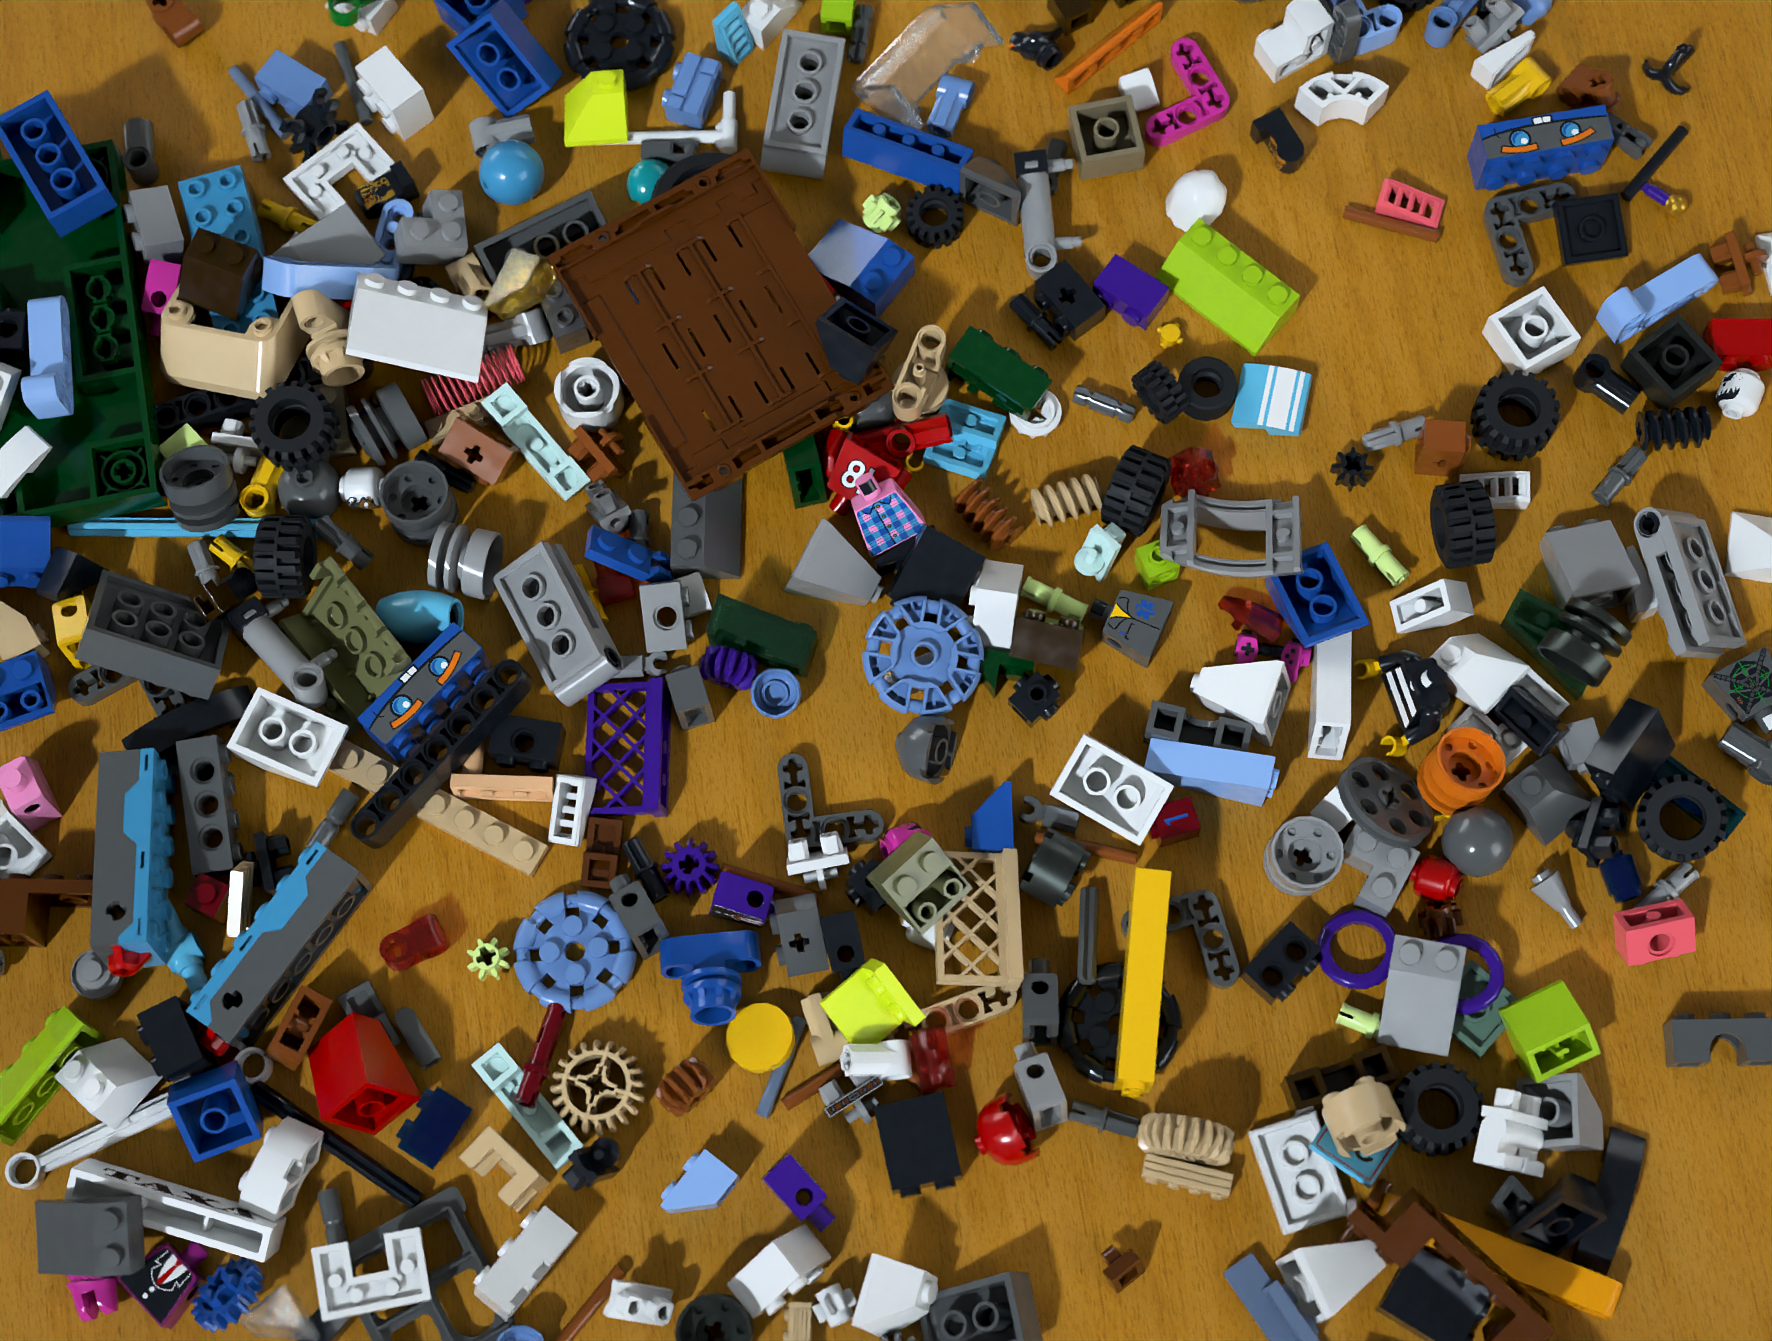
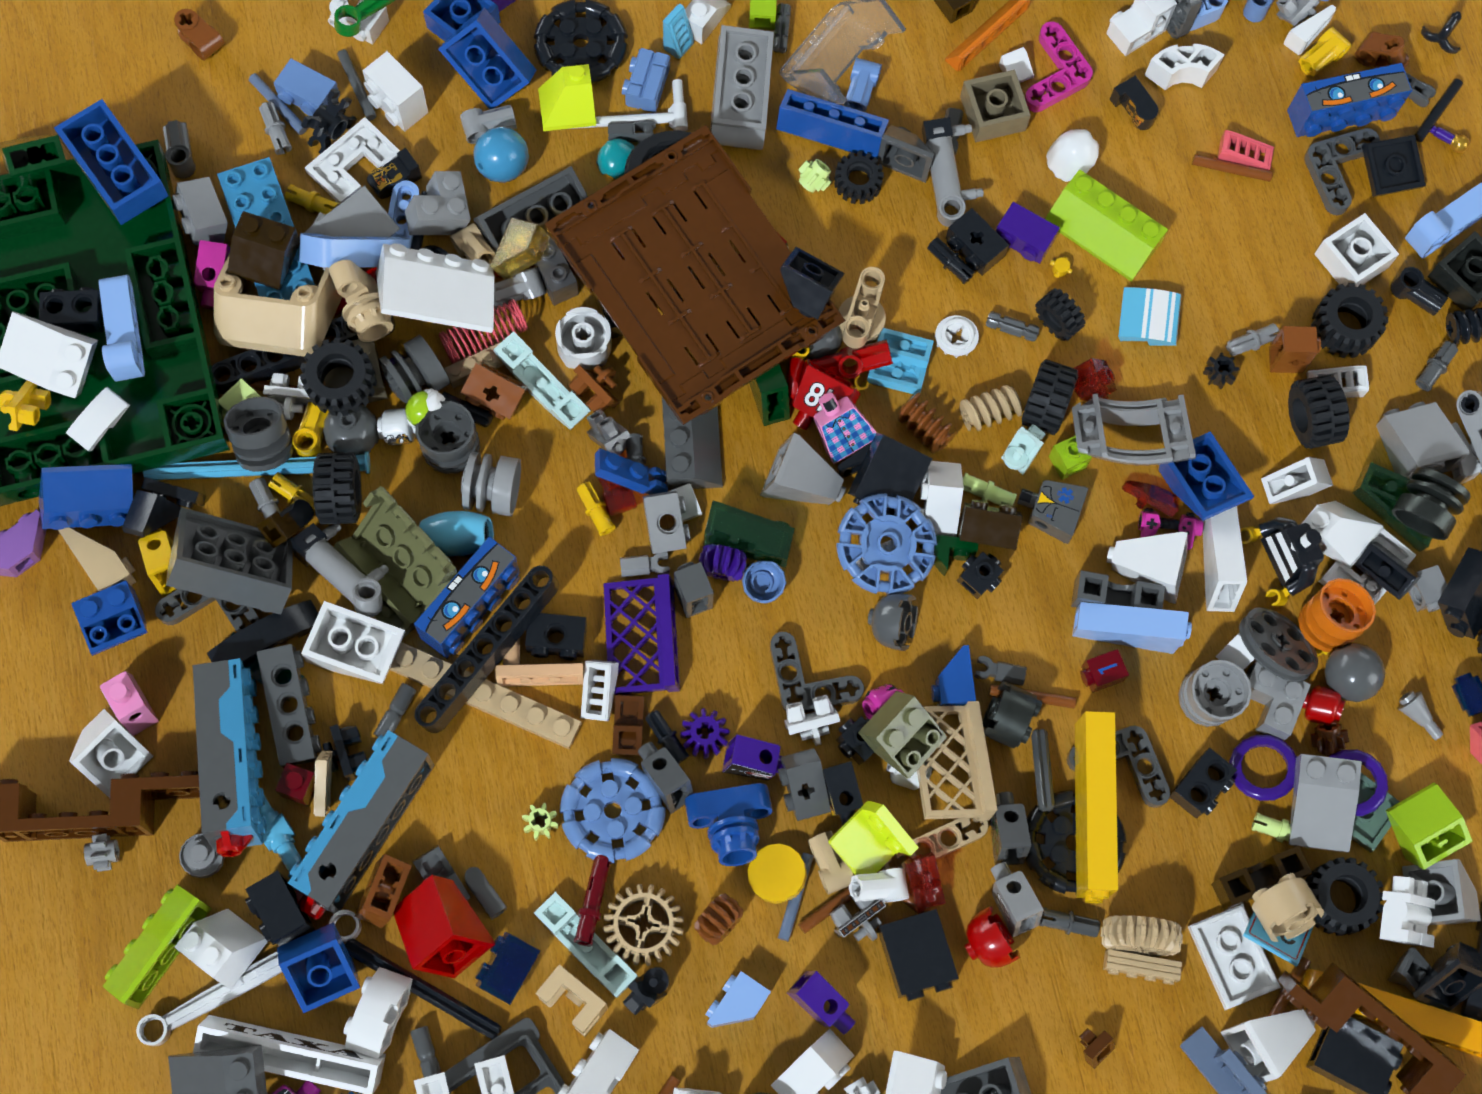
camera: 15 degrees left, 0 degrees up
(111, 557) = (184, 497): none -> black plate
(343, 542) = (385, 474): dark grey axle -> none
(390, 460) = (420, 404): none -> lime hair
(417, 942) = (478, 811): clear red piece -> none
(558, 622) = (607, 557): light grey hinge -> none
(780, 887) = (786, 746): dark orange bar -> none
(862, 266) = (804, 218): blue slope -> none
(997, 373) = (926, 305): dark green wedge -> none
(1038, 47) = (931, 33): black animal -> none
(1111, 789) = (1052, 646): white slope -> none
(1211, 370) = (1108, 299): black tyre -> none
(1379, 555) = (1250, 440): yellowish green pin -> none
(1546, 798) = (1404, 634): dark grey slope -> none
(1591, 832) = (1444, 659): black hips -> none

